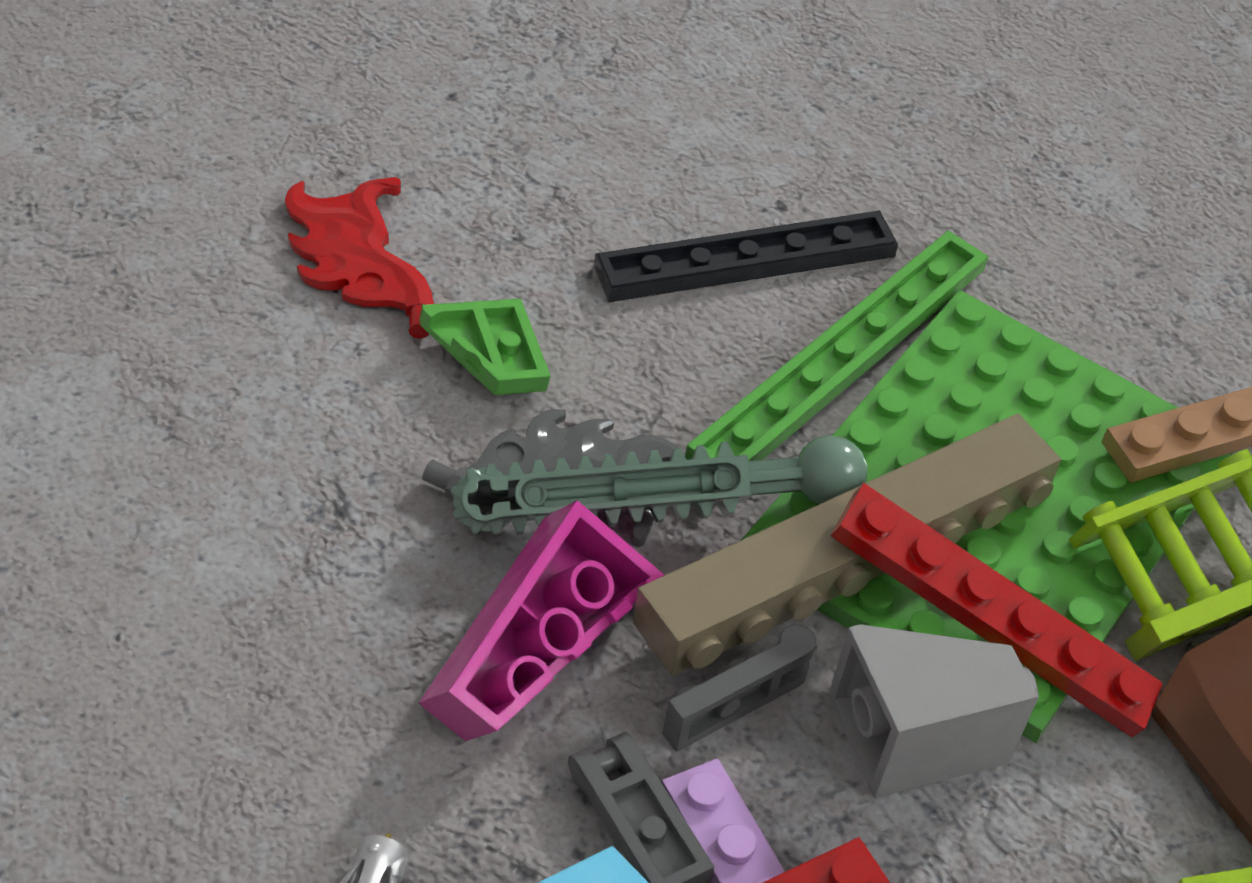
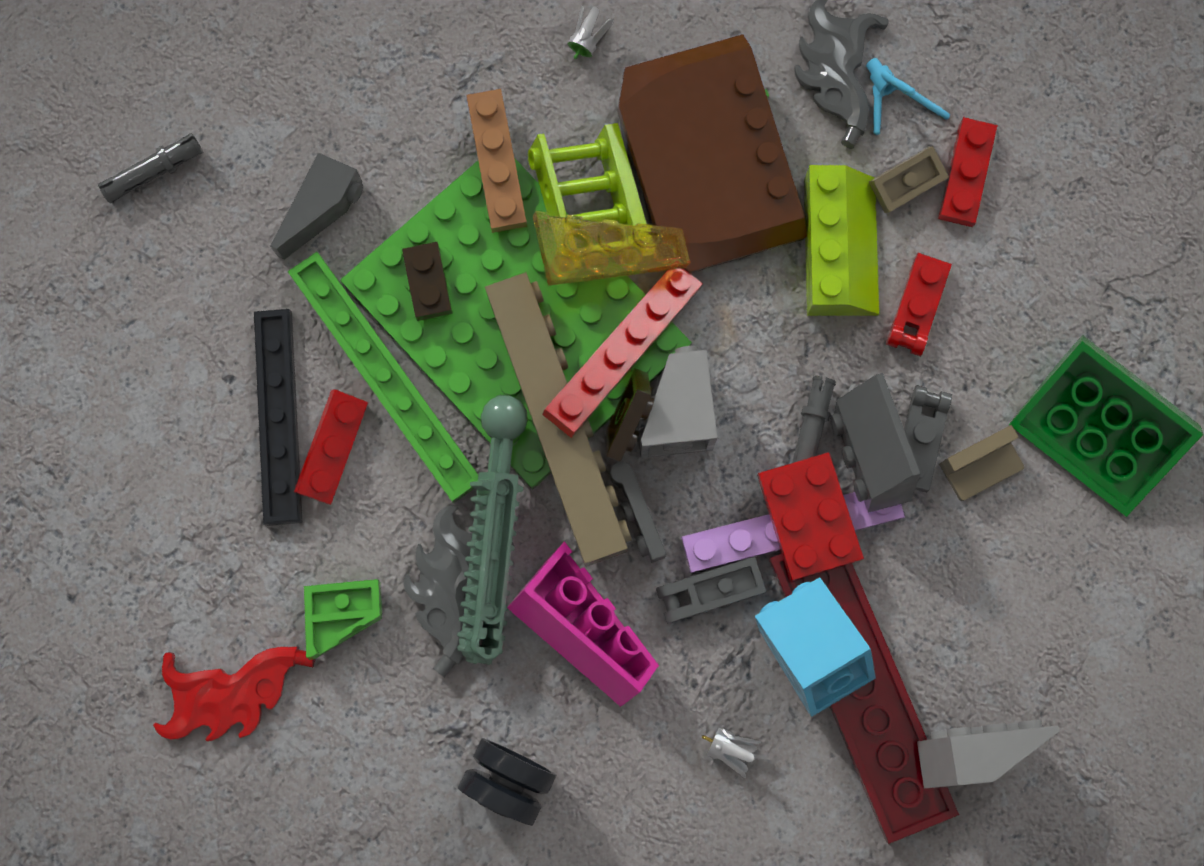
camera: 70 degrees left, 30 degrees up
(275, 548) = (504, 788): none -> black wheel
(724, 308) = (331, 447): none -> red plate
(899, 607) = (633, 406): none -> dark brown plate
(997, 371) = (427, 281): none -> dark brown plate
(1038, 103) = (144, 171): none -> dark grey pin
(1051, 251) = (319, 202): none -> dark grey slope
(1137, 544) = (600, 250): none -> clear yellow wing

